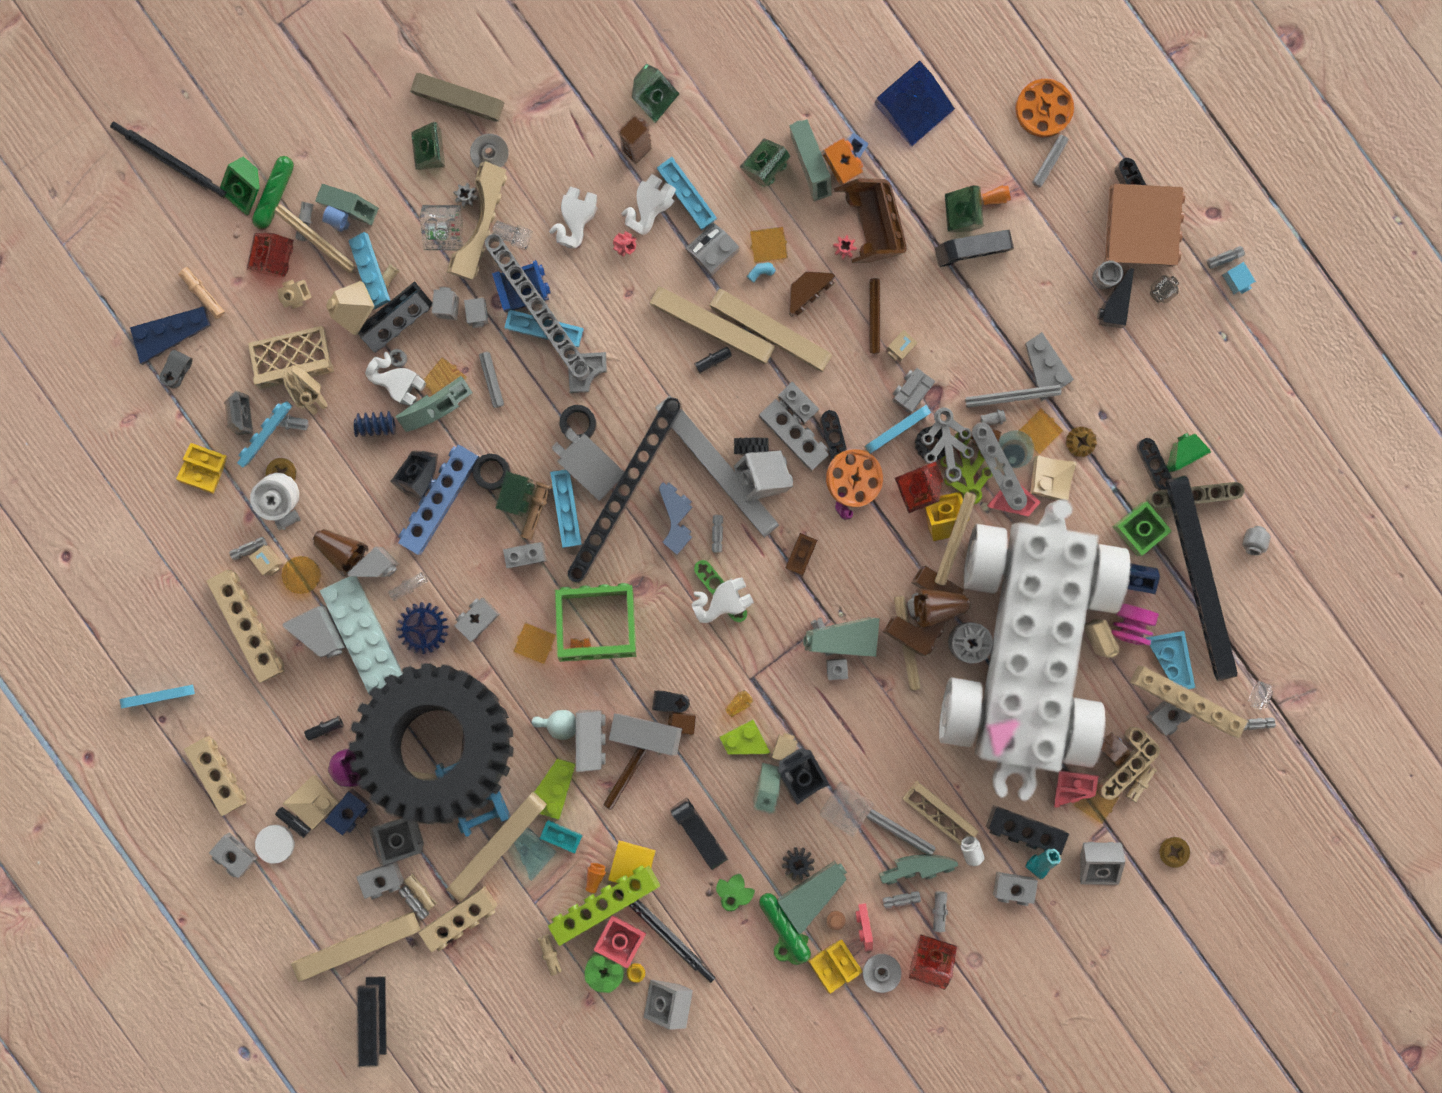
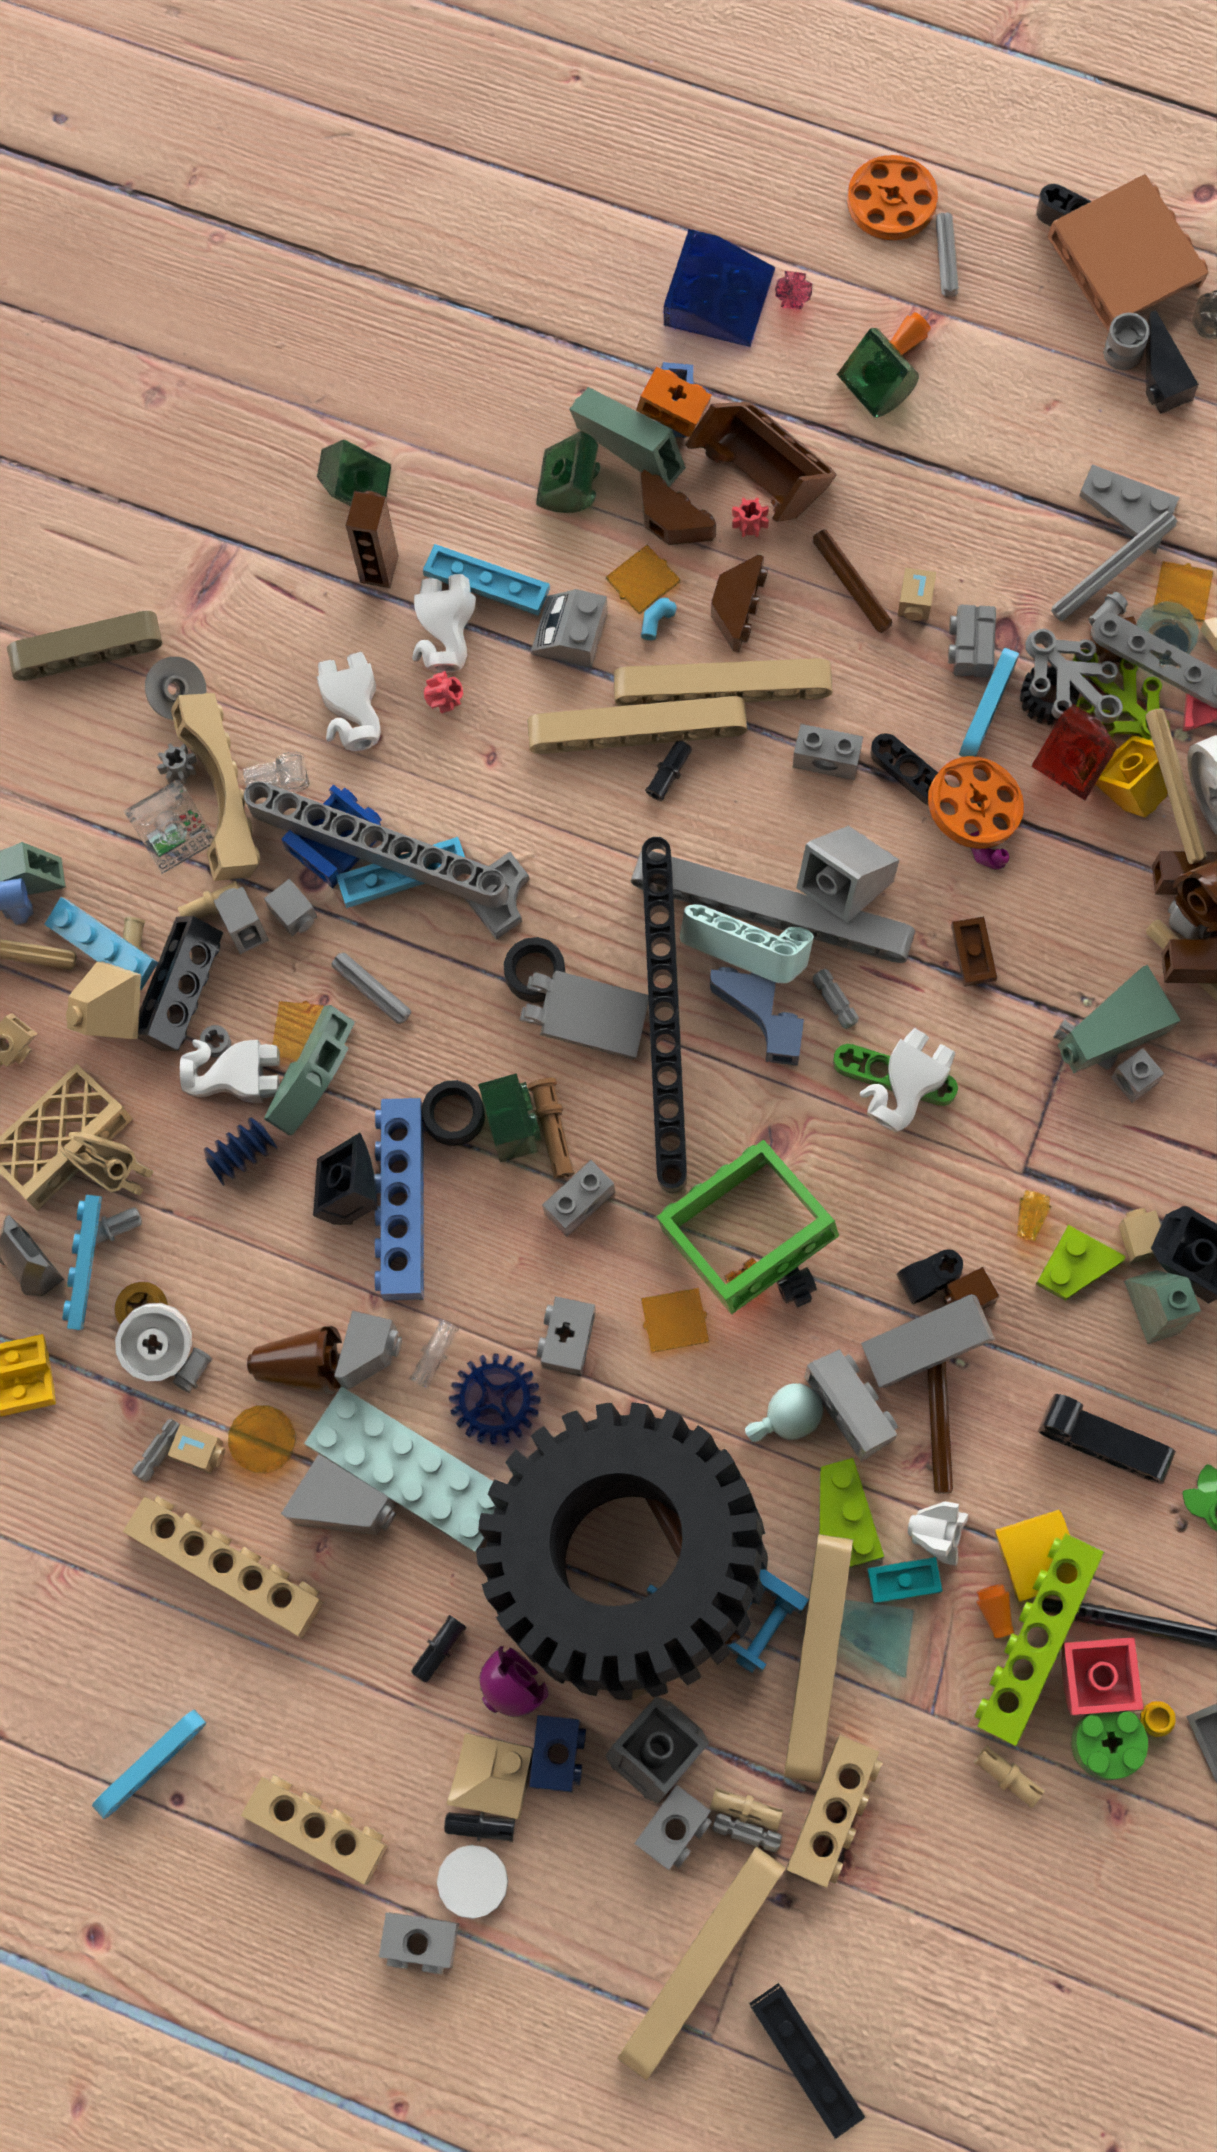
camera: 30 degrees left, 15 degrees down
(428, 147) = (83, 733): clear green slope -> none
(437, 282) = (205, 905): none -> tan pin
(566, 508) = (595, 1097): medium azure plate -> none
(591, 825) = (939, 1530): none -> white brick
(602, 667) = (797, 1286): none -> black gear
(687, 480) = (745, 945): none -> light aqua beam
(750, 445) = (791, 848): black tyre -> none
(778, 408) = (862, 811): light grey brick -> none
(805, 218) = (672, 514): none -> reddish brown slope
(954, 130) = (793, 290): none -> clear pink gear
(973, 247) = (921, 413): beam -> none

